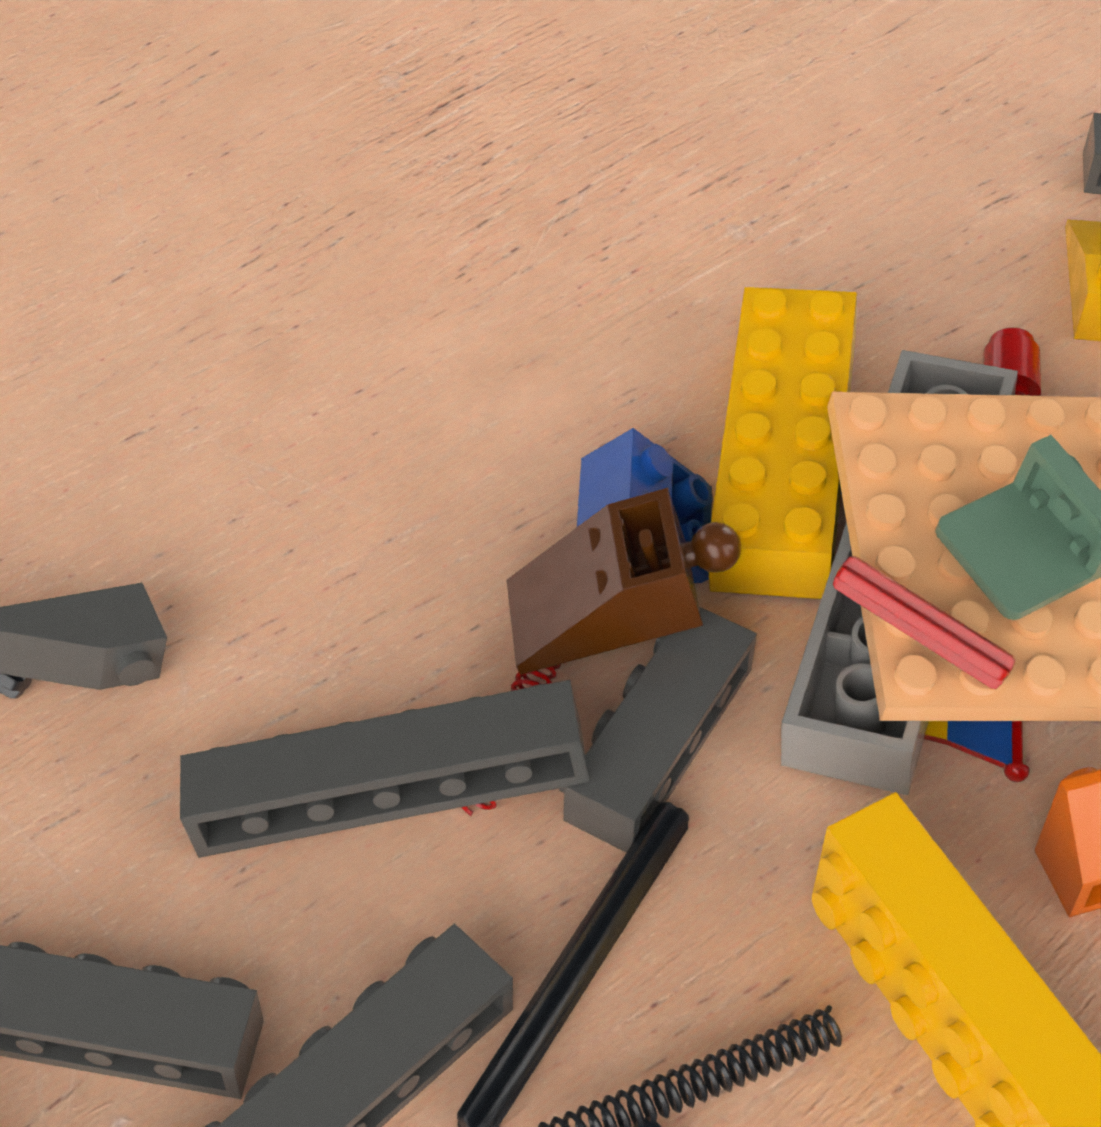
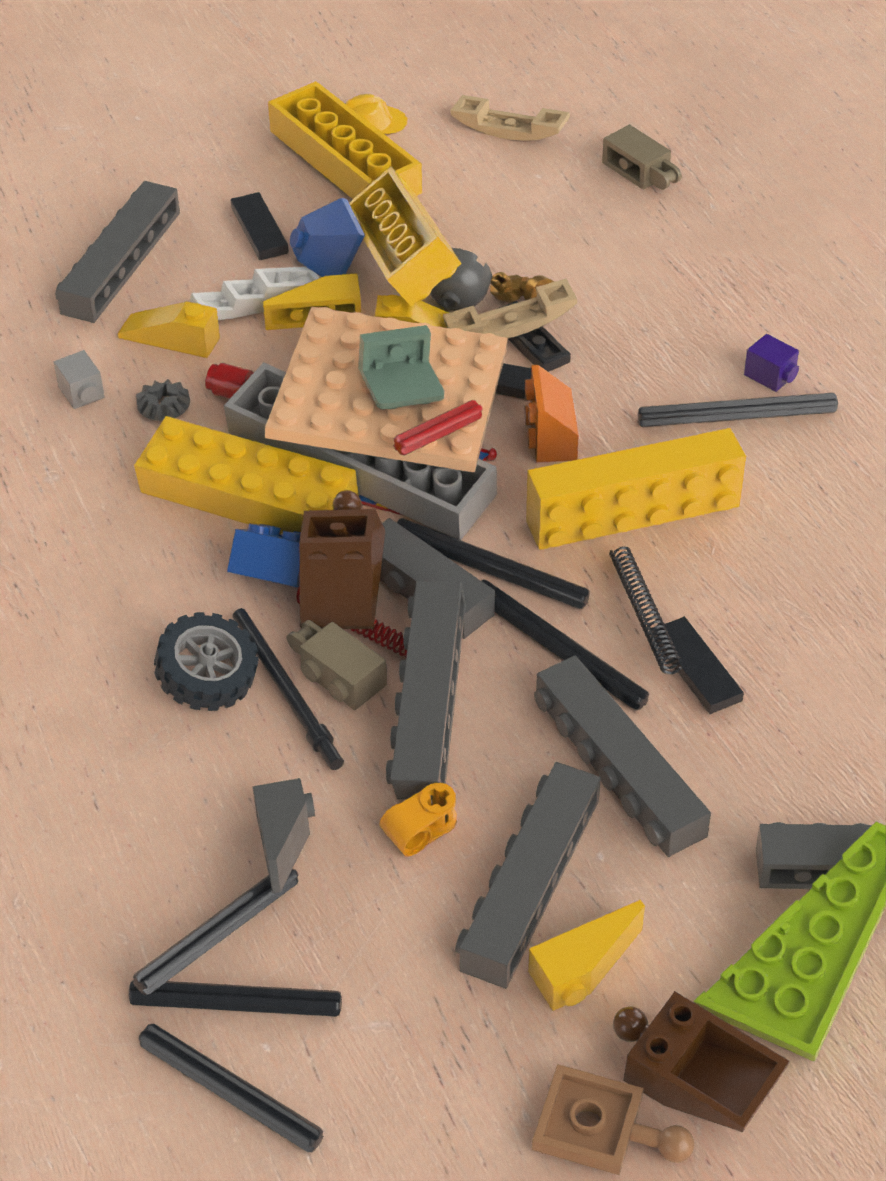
camera: 75 degrees left, 5 degrees down
(134, 828) = (417, 821): none -> light orange piece
(293, 657) = (317, 734): none -> black bar
(371, 429) = (200, 685): none -> black wheel
(438, 642) = (339, 663): none -> dark tan brick
(737, 830) = (500, 566): none -> black axle
(931, 319) = (172, 406): none -> dark grey gear
(932, 197) = (79, 379): none -> light grey brick

